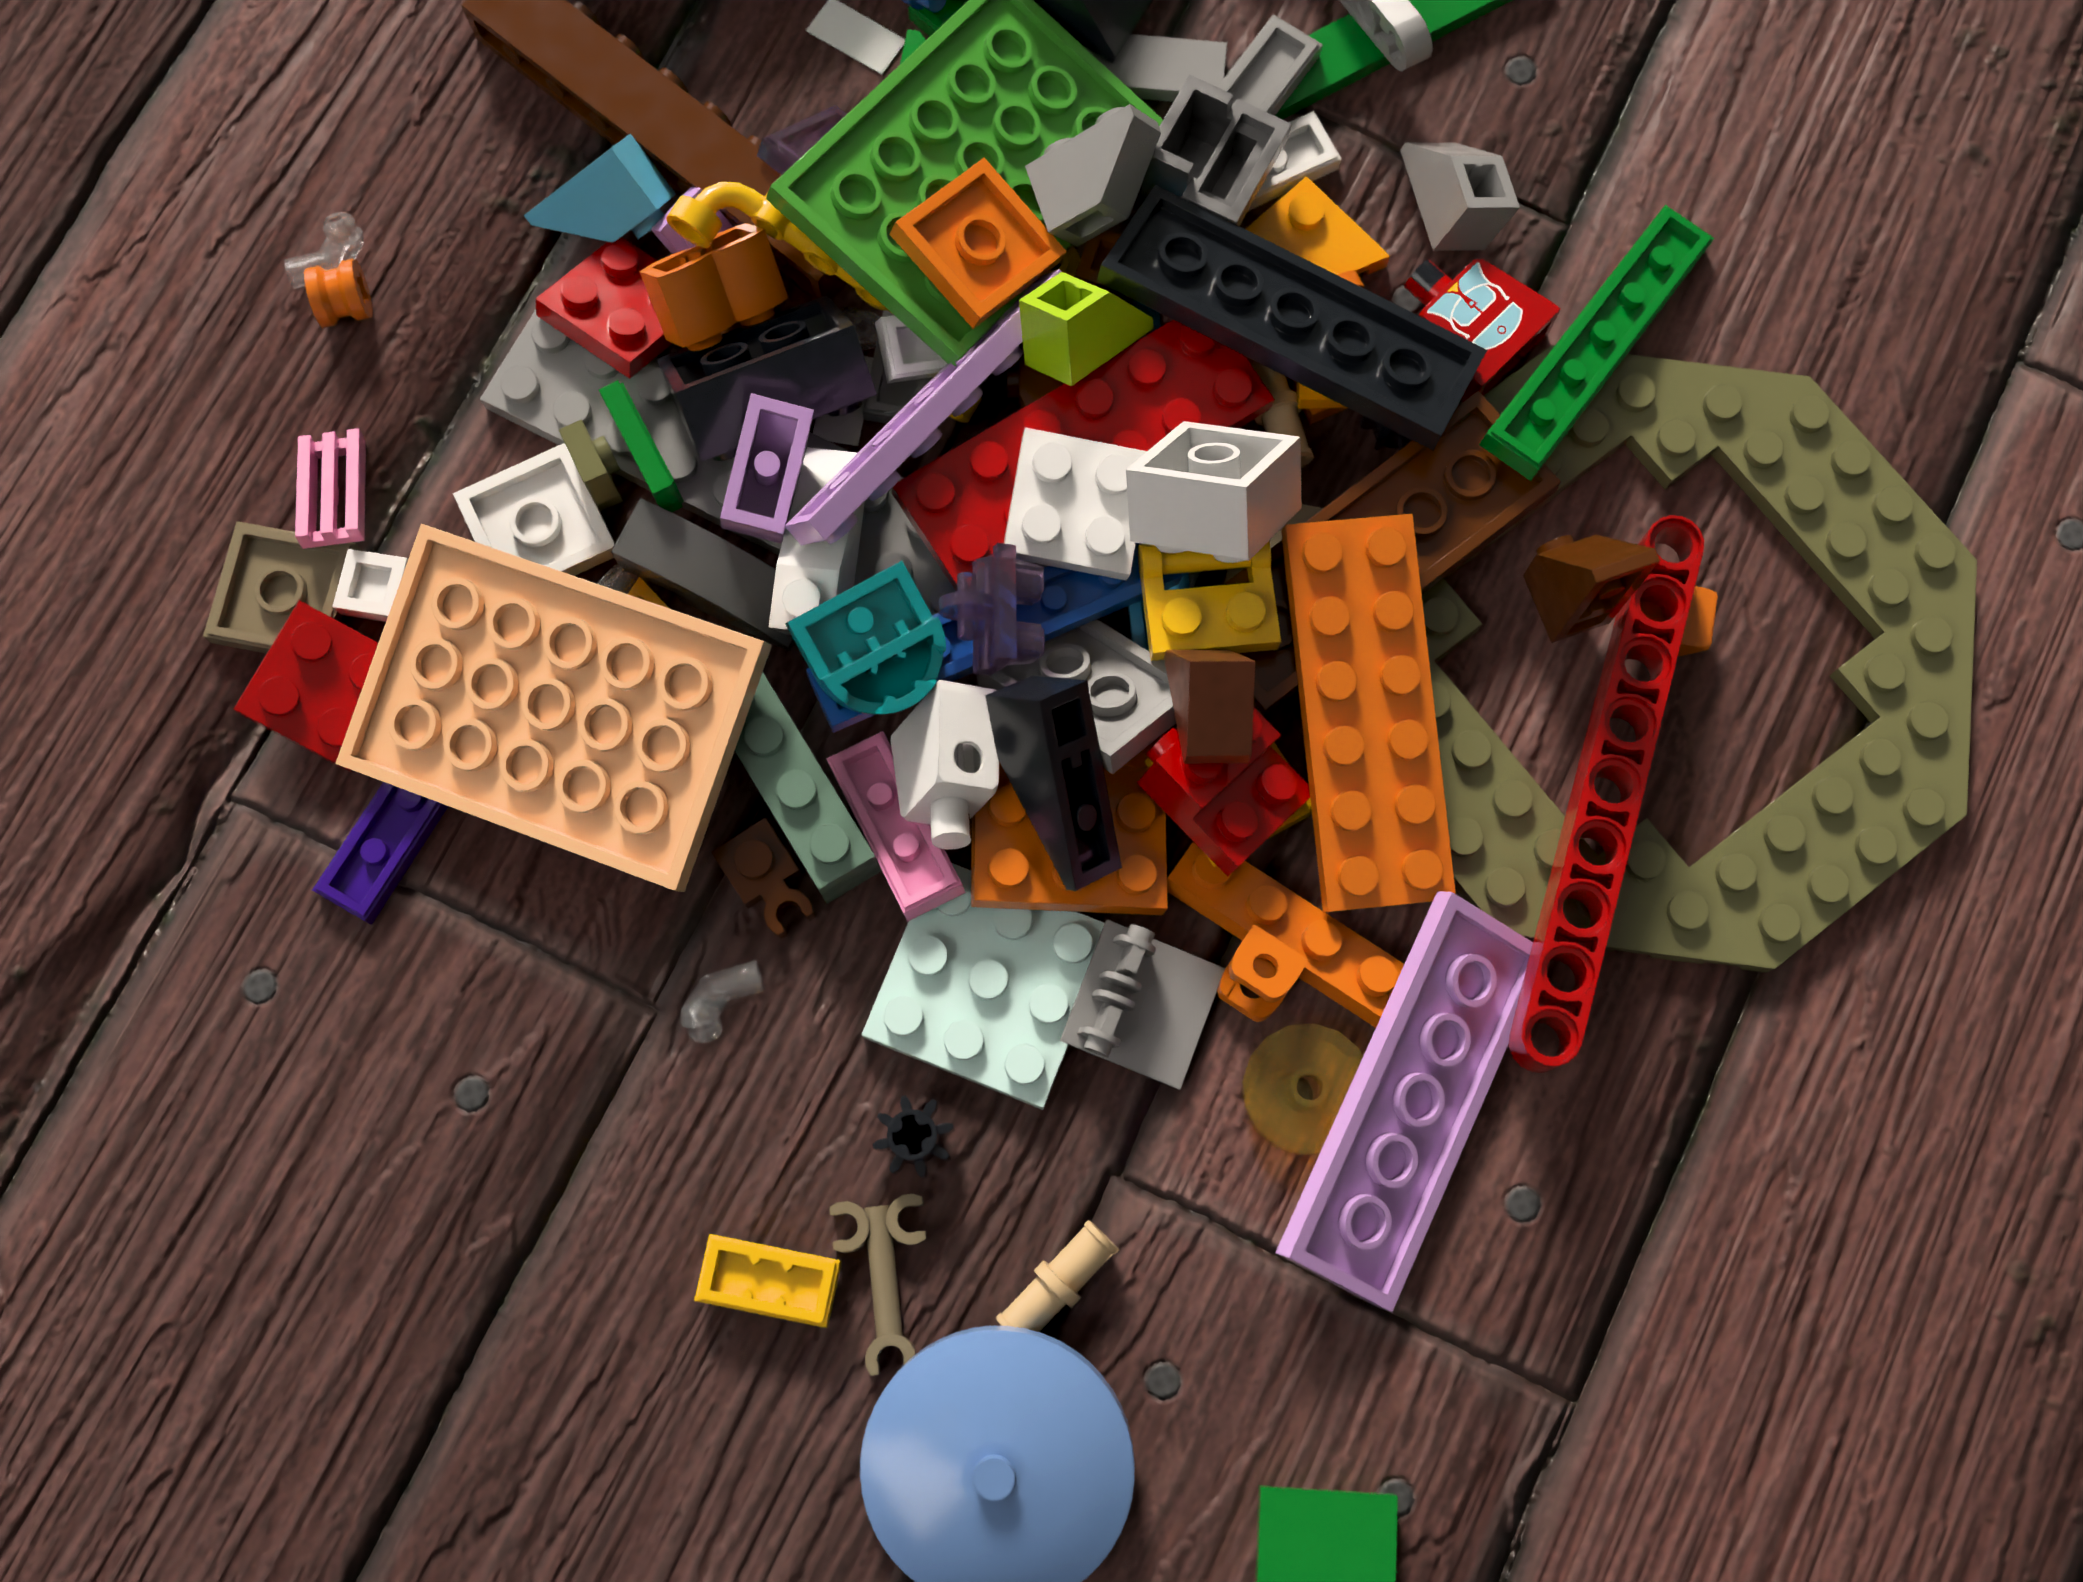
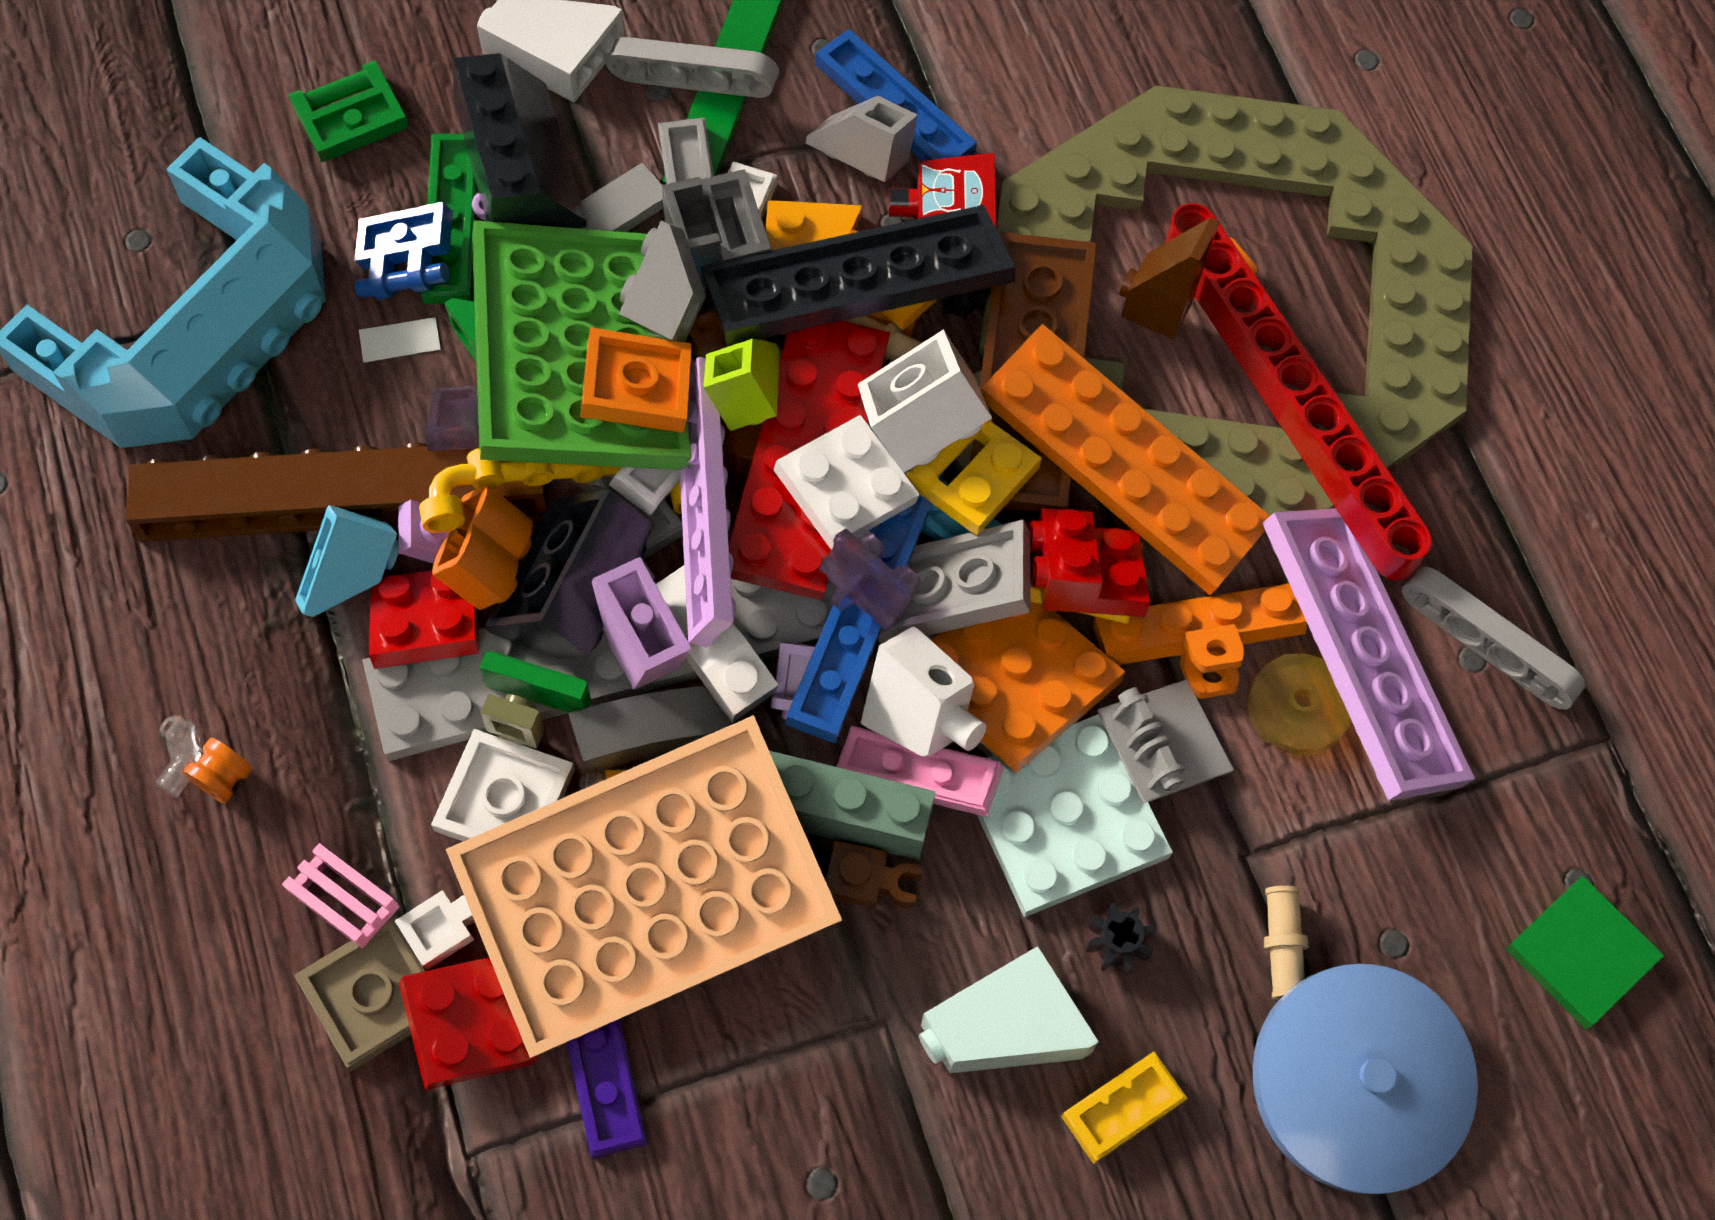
camera: 50 degrees left, 10 degrees down
(711, 996) = (912, 973): clear arm -> none
(746, 1110) = (1008, 1021): none -> light aqua slope
(873, 644) = (816, 662): teal slope -> none
(877, 1227) = (1153, 1016): dark tan bar -> none
(1055, 765) = (994, 636): black slope -> none
(1212, 704) = (1047, 518): copper slope -> none
(1529, 143) = (866, 75): none -> blue plate
(1556, 1205) = (1493, 638): none -> light grey beam
(1596, 343) = (1032, 157): green tile -> none

